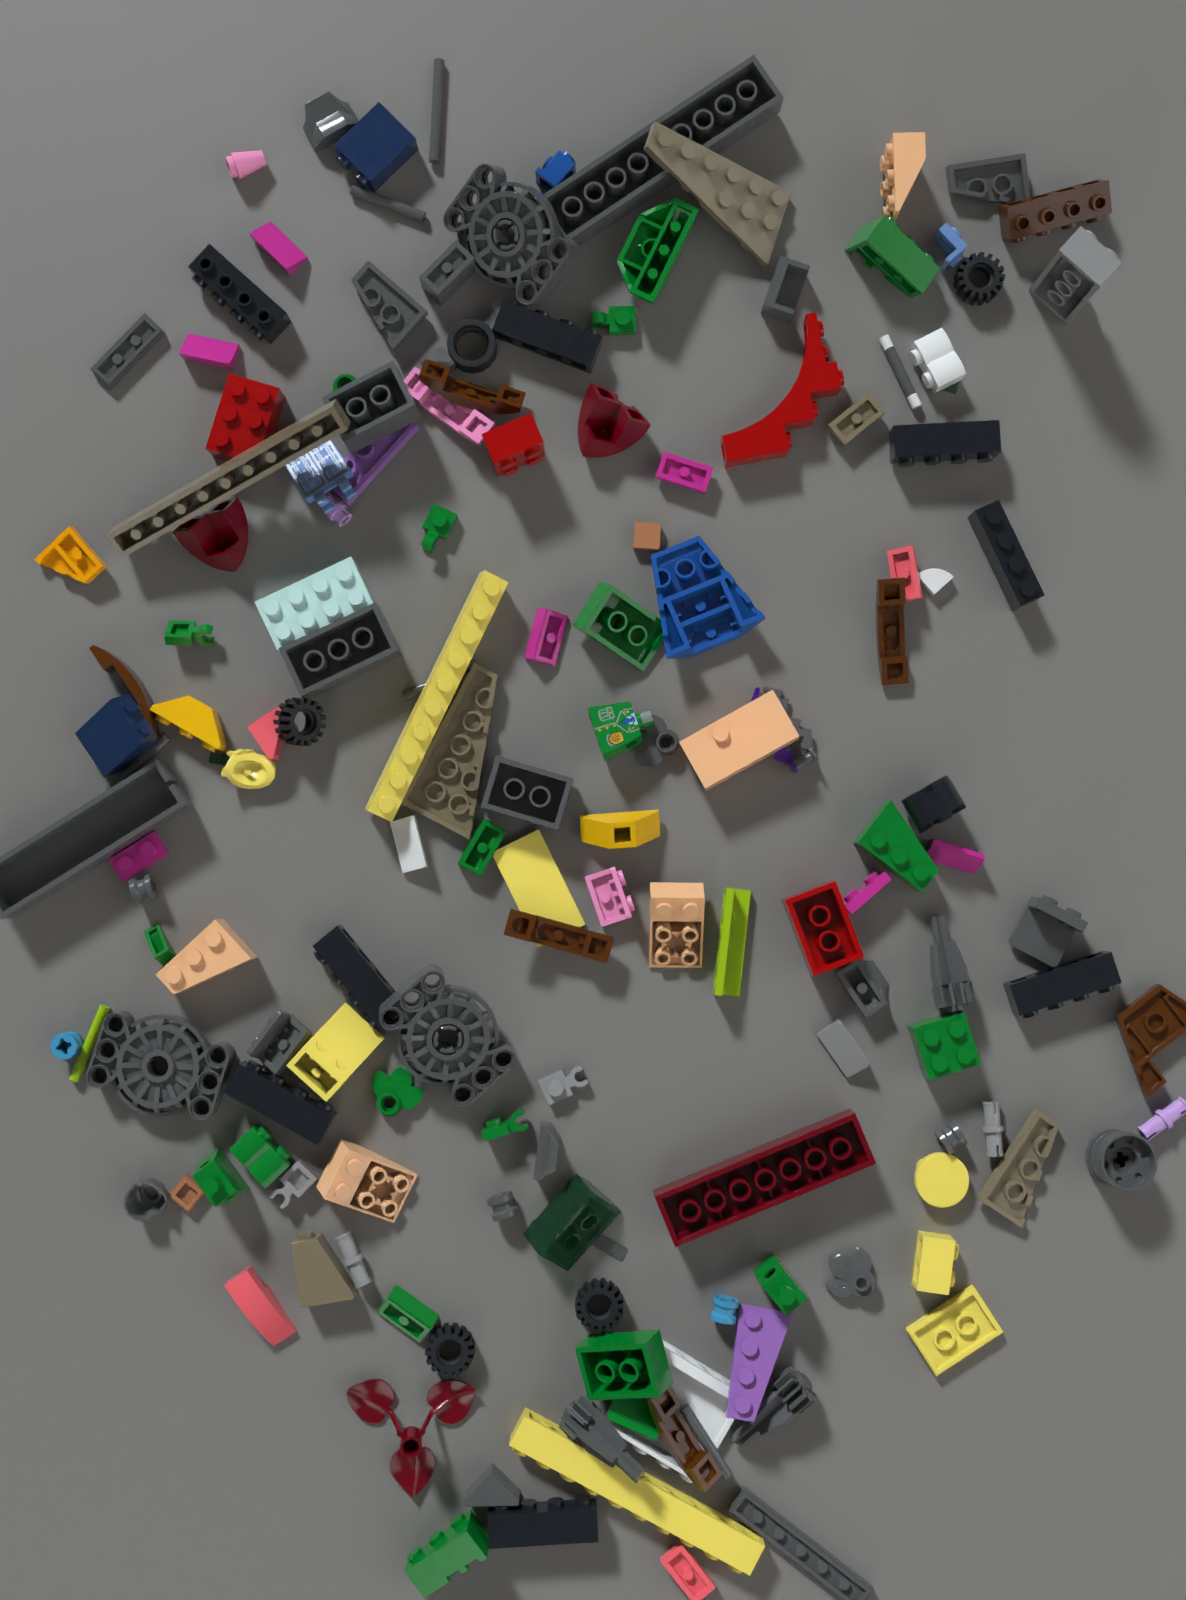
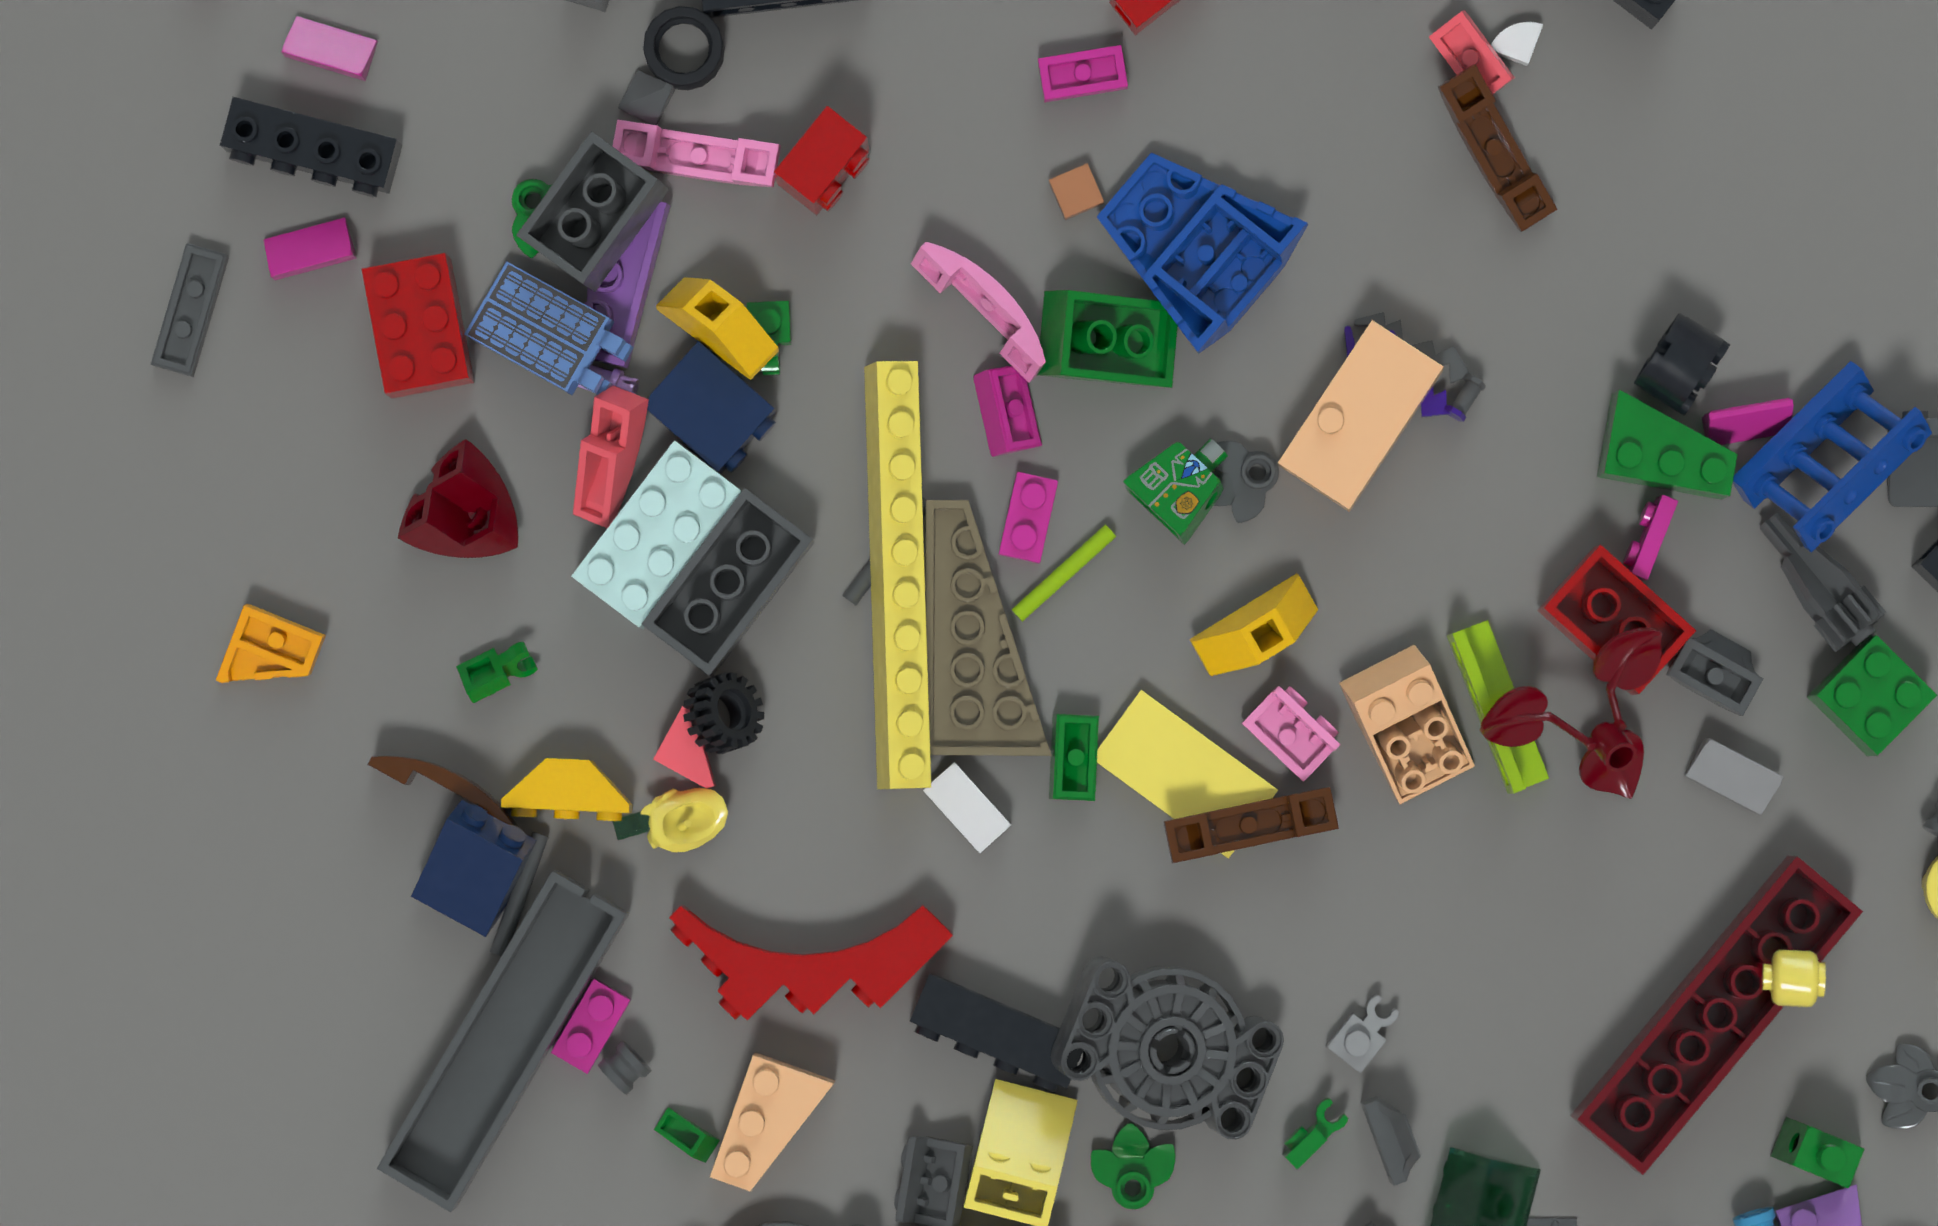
camera: 30 degrees left, 0 degrees up
(229, 478) = (446, 420): dark tan brick -> none
(272, 894) = (757, 974): none -> red arch
(313, 546) = (609, 454): none -> coral slope
(381, 551) = (711, 409): none -> dark blue brick
(388, 304) = (532, 50): dark grey wing -> none
(410, 507) = (719, 324): none -> yellow slope
(470, 395) = (718, 120): reddish brown slope -> none
(526, 702) = (1028, 517): none -> dark pink plate
(527, 793) = (1100, 646): dark grey brick -> none
(530, 742) = (1063, 573): none -> lime bar
(553, 541) = (945, 267): none -> bright pink slope
(607, 424) = (937, 60): dark red brick -> none
(782, 1000) = (1613, 753): none -> dark red plant
(817, 1182) = (1794, 978): none -> light yellow head
(985, 877) = (1806, 431): none -> blue fence

